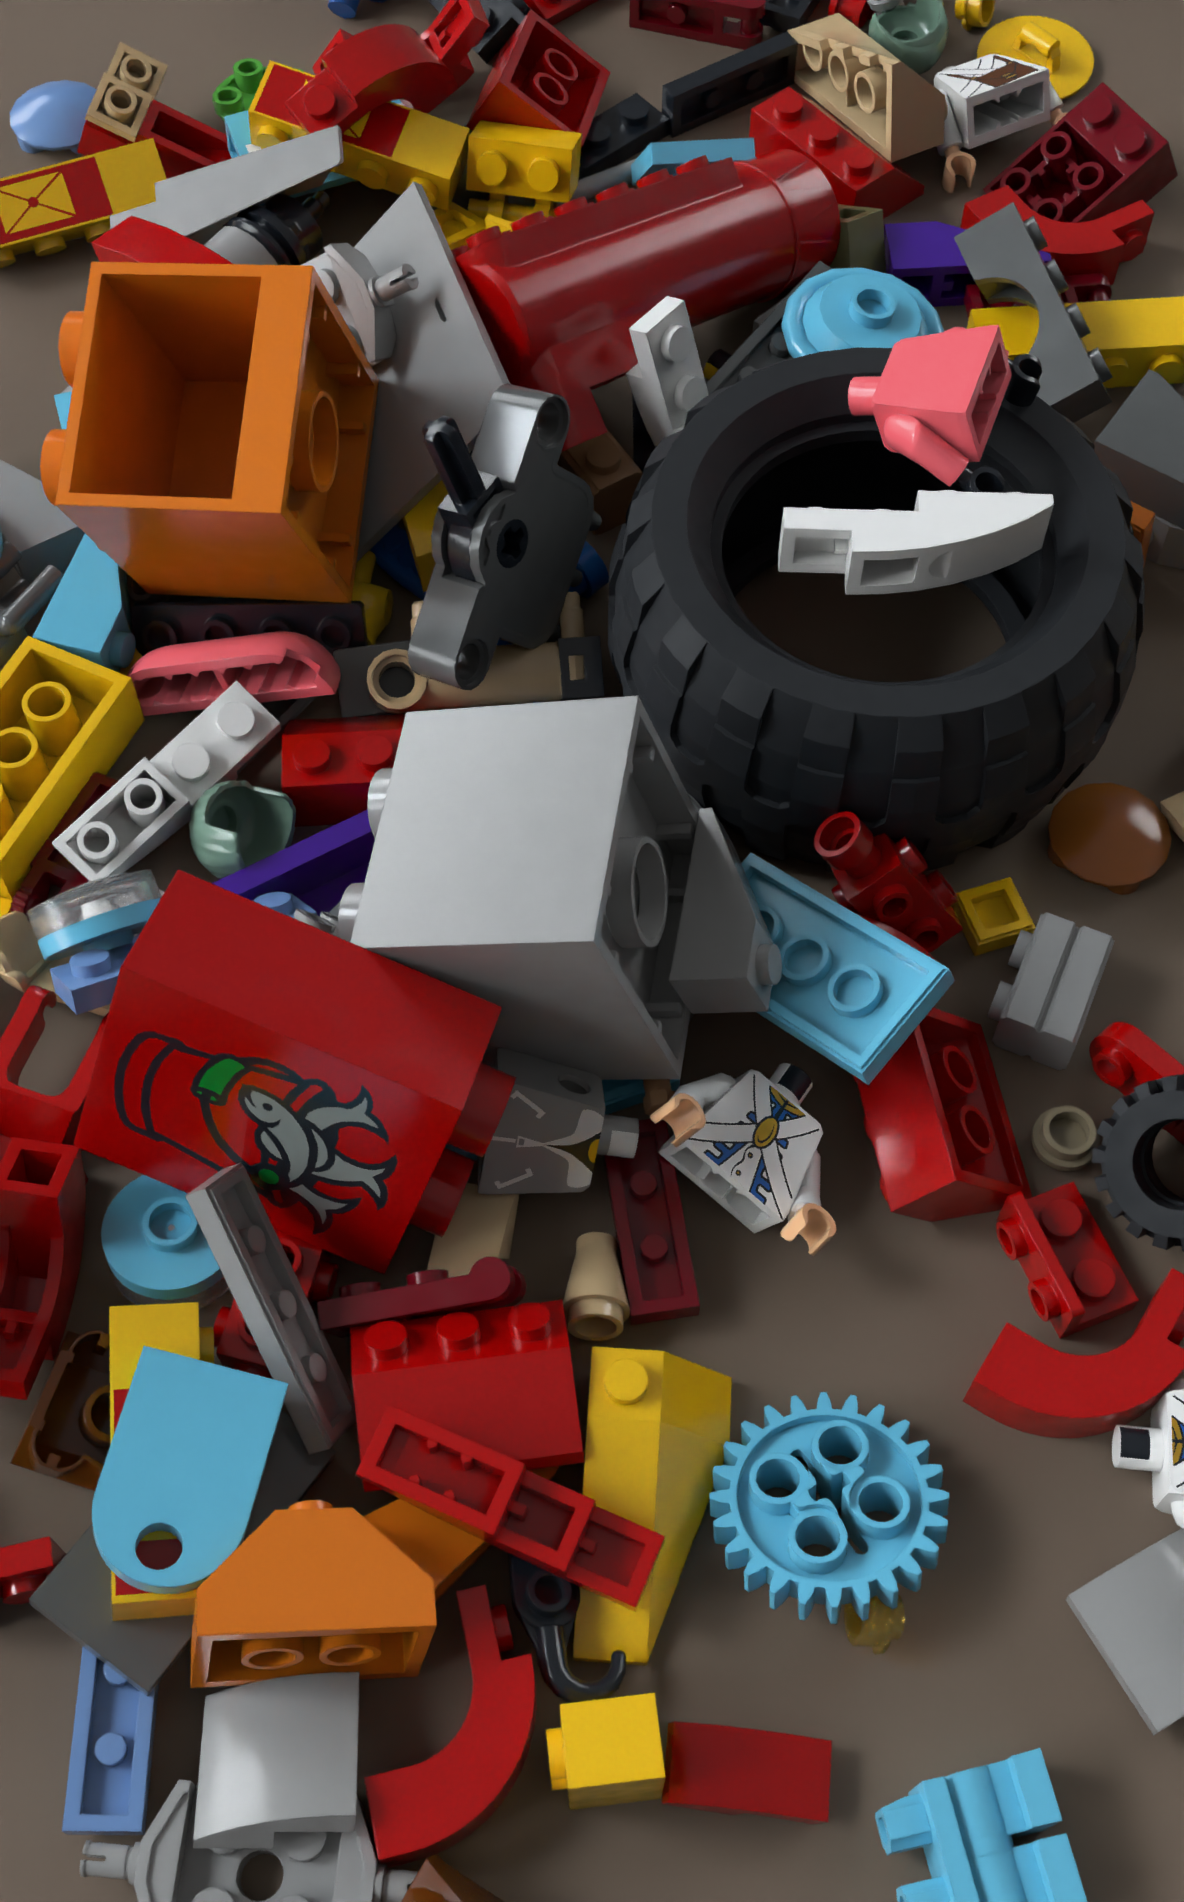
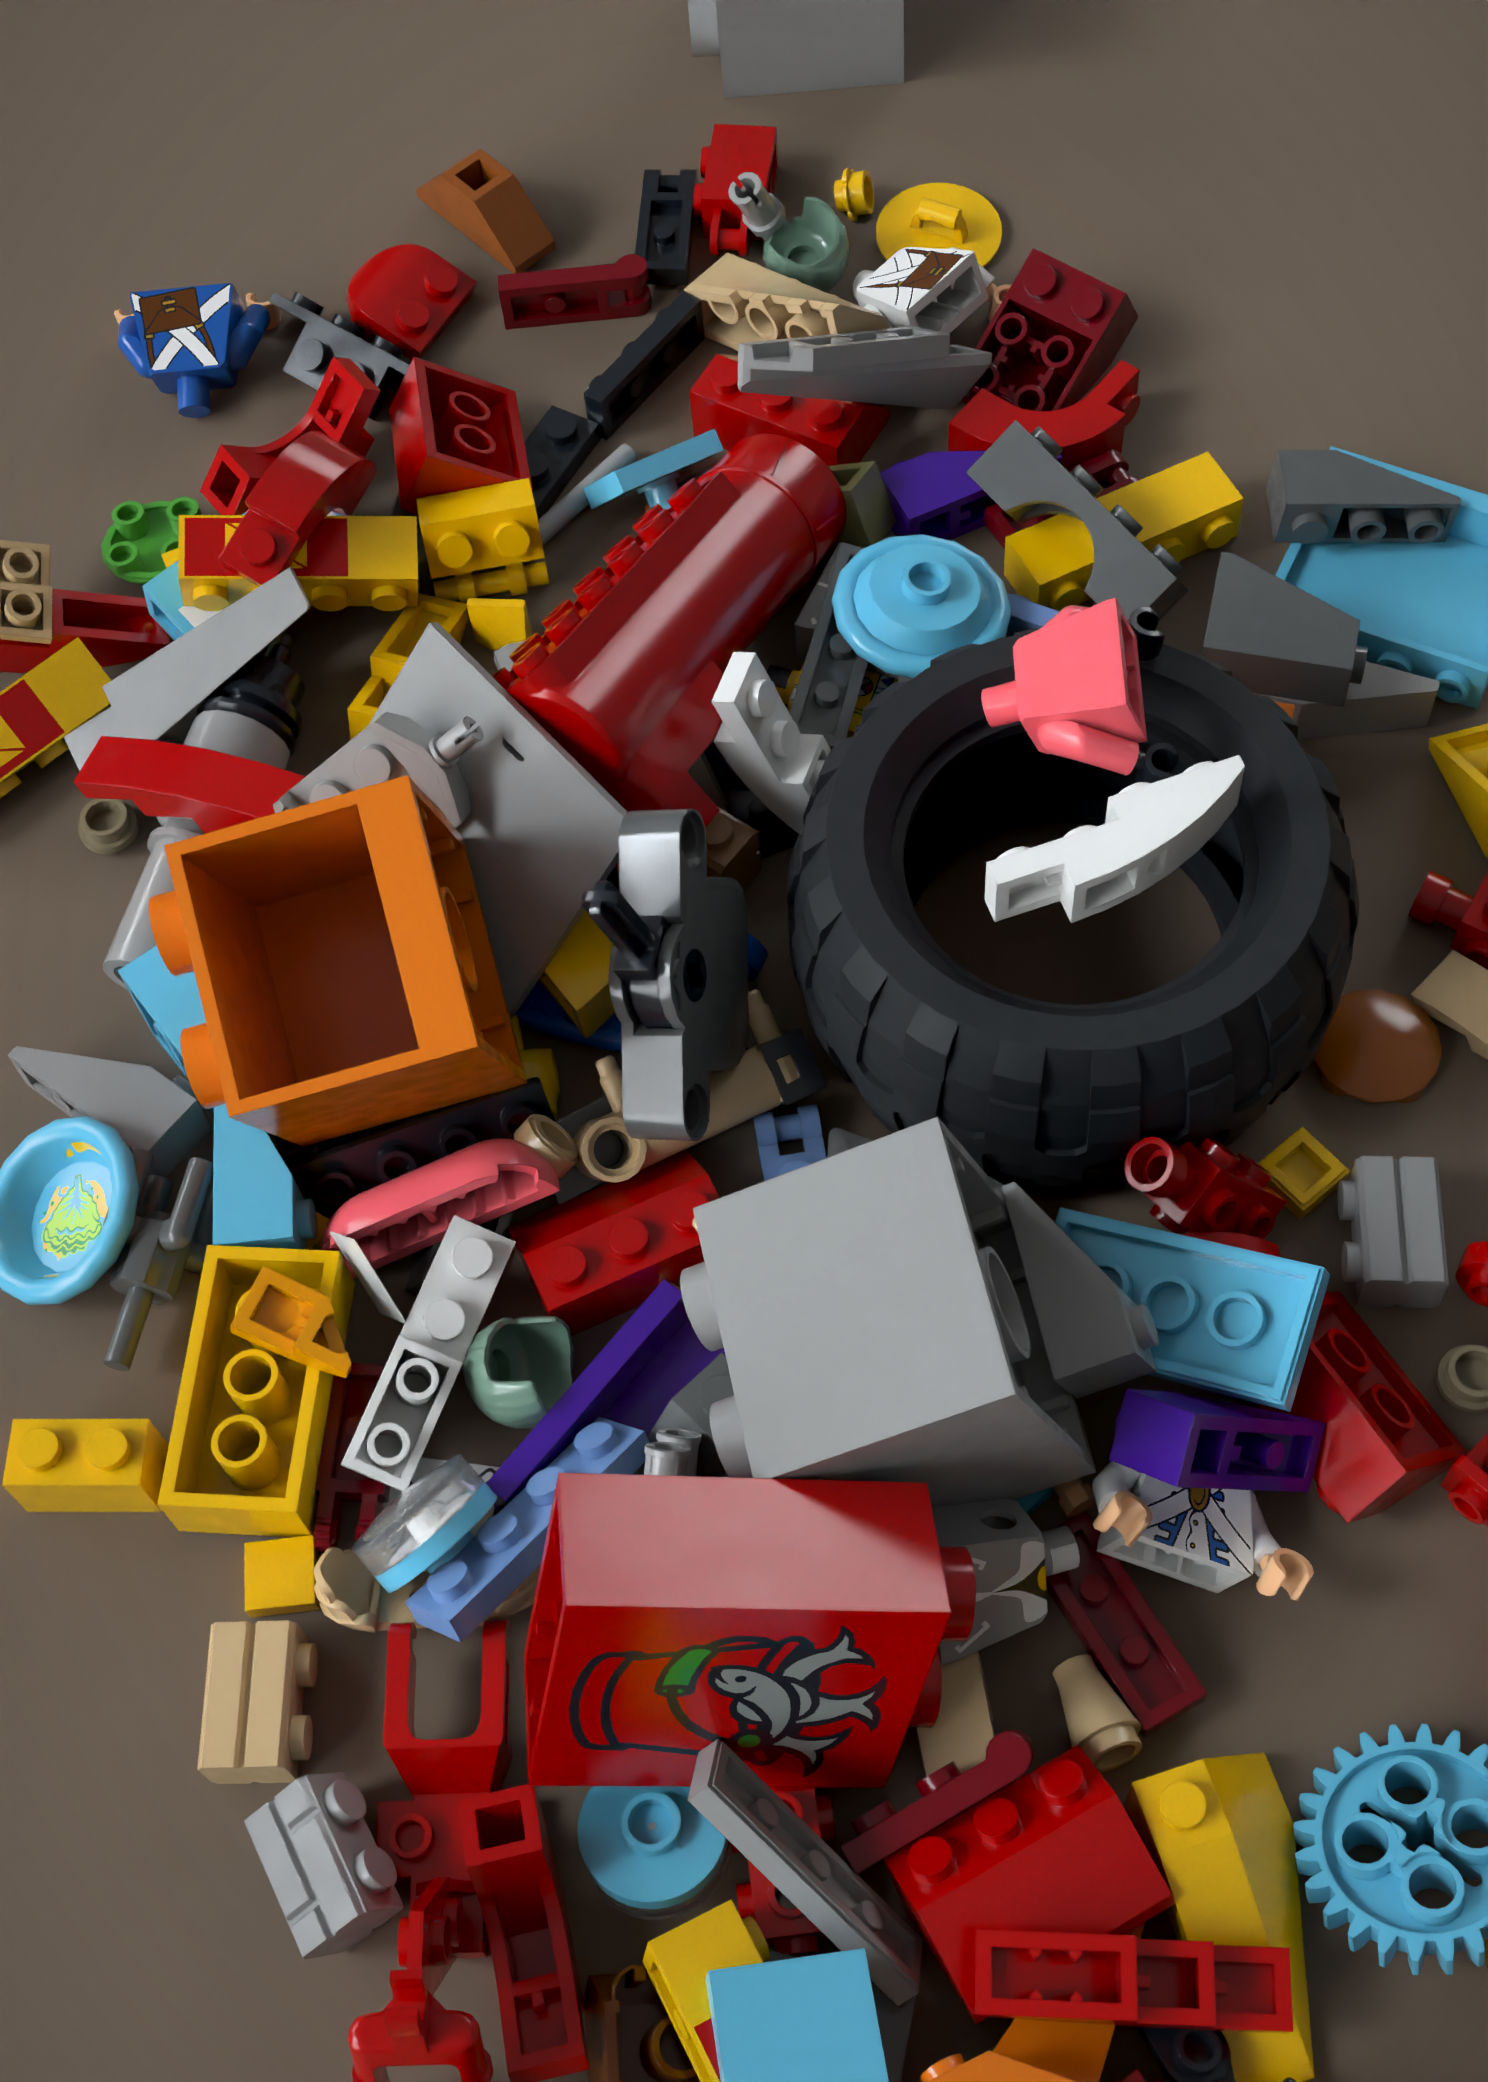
camera: 15 degrees left, 0 degrees up
(61, 715) = (292, 1323): none -> light orange slope
(145, 706) = (367, 1276): none -> white sticker
(347, 655) = (549, 1141): none -> tan tile
(795, 1091) = (1215, 1443): none -> dark purple slope
(909, 130) = (871, 366): none -> light grey wedge

